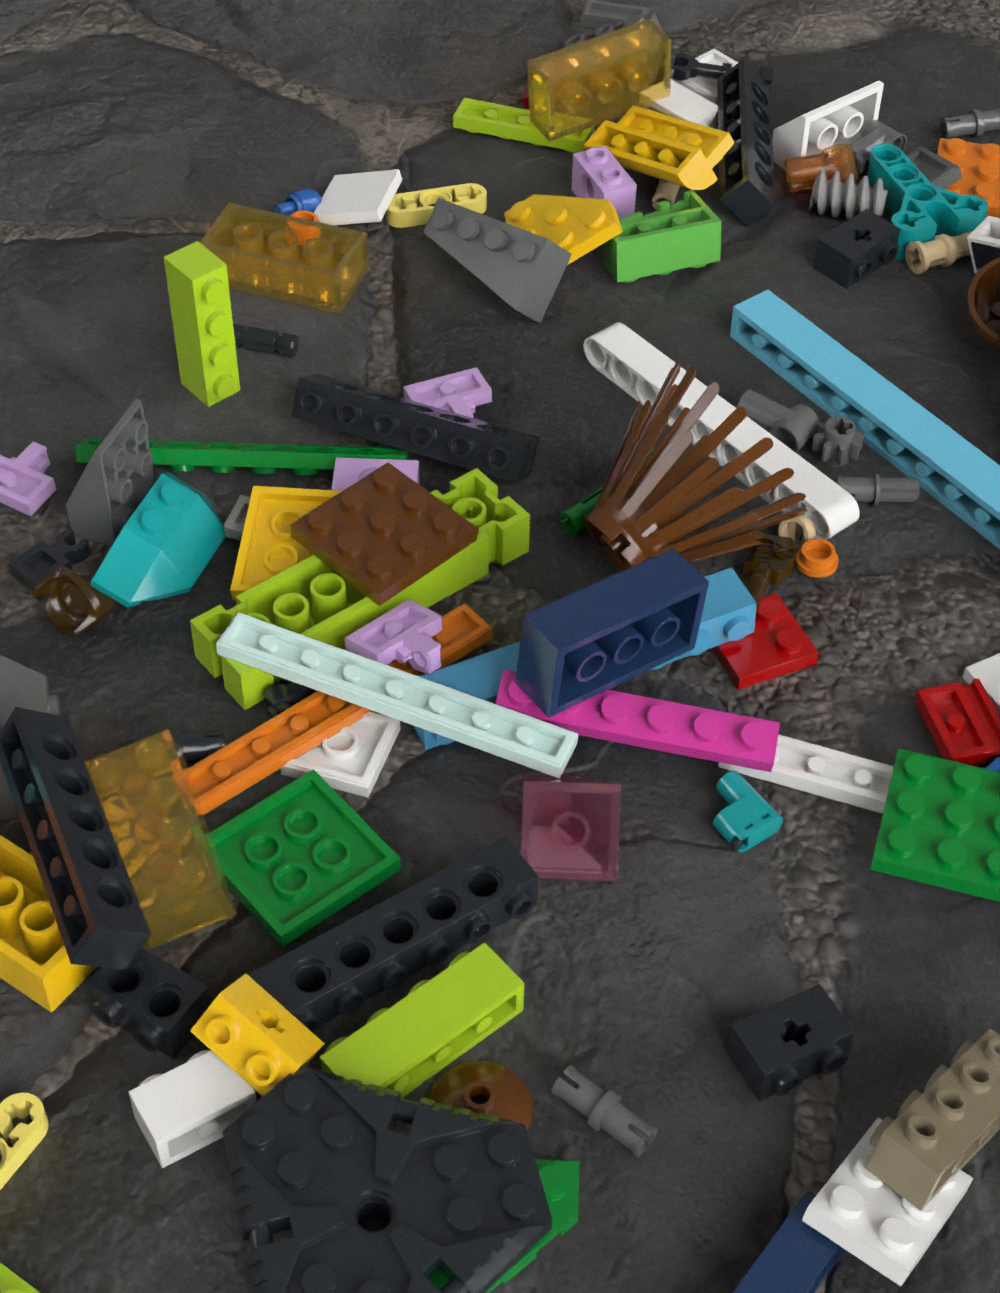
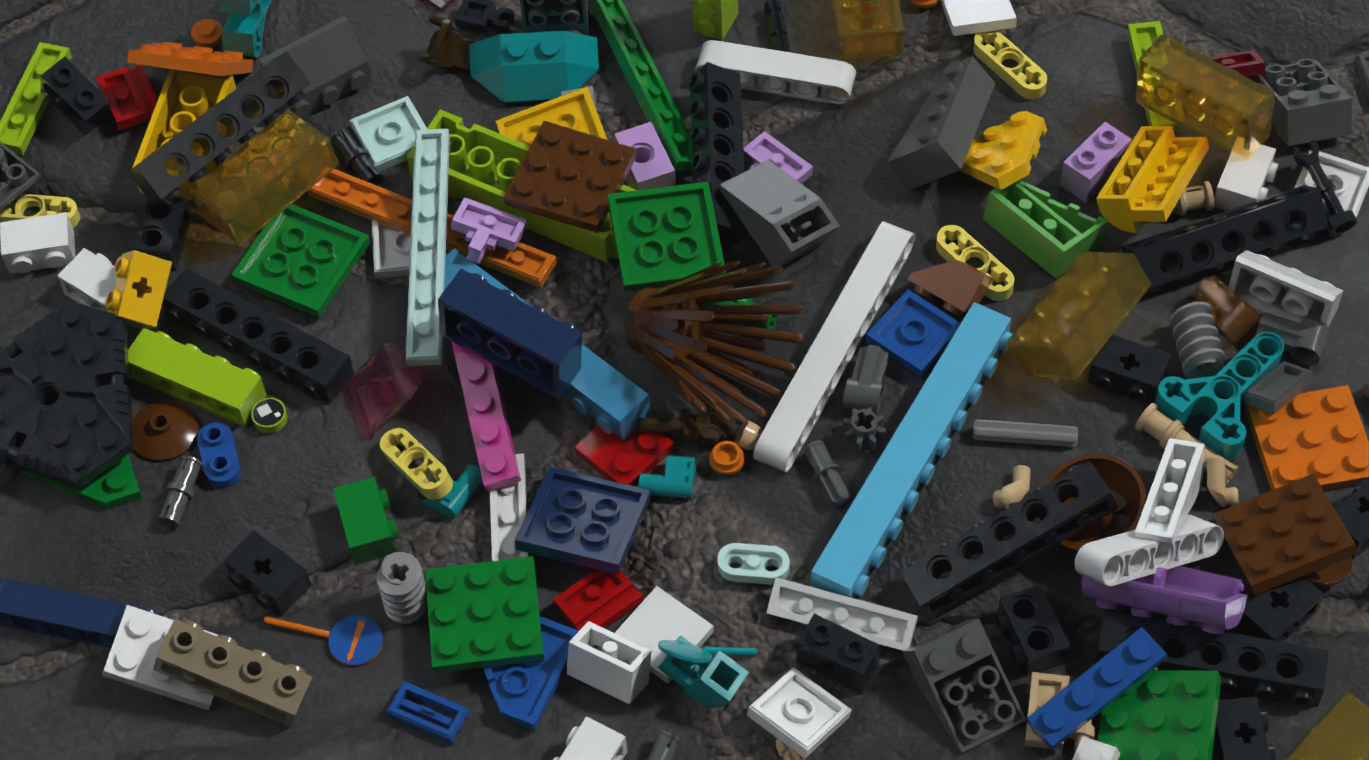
camera: 70 degrees right, 10 degrees up
(61, 1165) = (37, 243): none -> white brick
(156, 701) = (388, 132): none -> light aqua tile
(329, 352) = (782, 71): none -> white beam
(528, 478) = (664, 234): none -> green plate
(532, 967) = (269, 415): none -> tile
(538, 397) = (779, 212): none -> dark grey slope
(560, 1048) = (217, 453): none -> blue plate
(689, 301) = (969, 249): none -> light yellow beam
(697, 316) = (954, 283): none -> dark orange slope
(705, 809) = (418, 475): none -> light yellow beam
(736, 365) = (913, 333): none -> blue plate
(755, 910) = (365, 521): none -> green brick
(792, 245) = (1079, 314): none -> clear yellow brick
(824, 608) = (677, 480): none -> teal piece
(858, 695) = (583, 520): none -> dark blue plate
(894, 337) = (1025, 433): none -> light grey axle
(894, 888) = (402, 588): none -> light grey piece
(916, 988) = (351, 640): none -> blue piece
(964, 371) = (1016, 491): none -> tan arm
(968, 580) = (754, 562): none -> light aqua plate

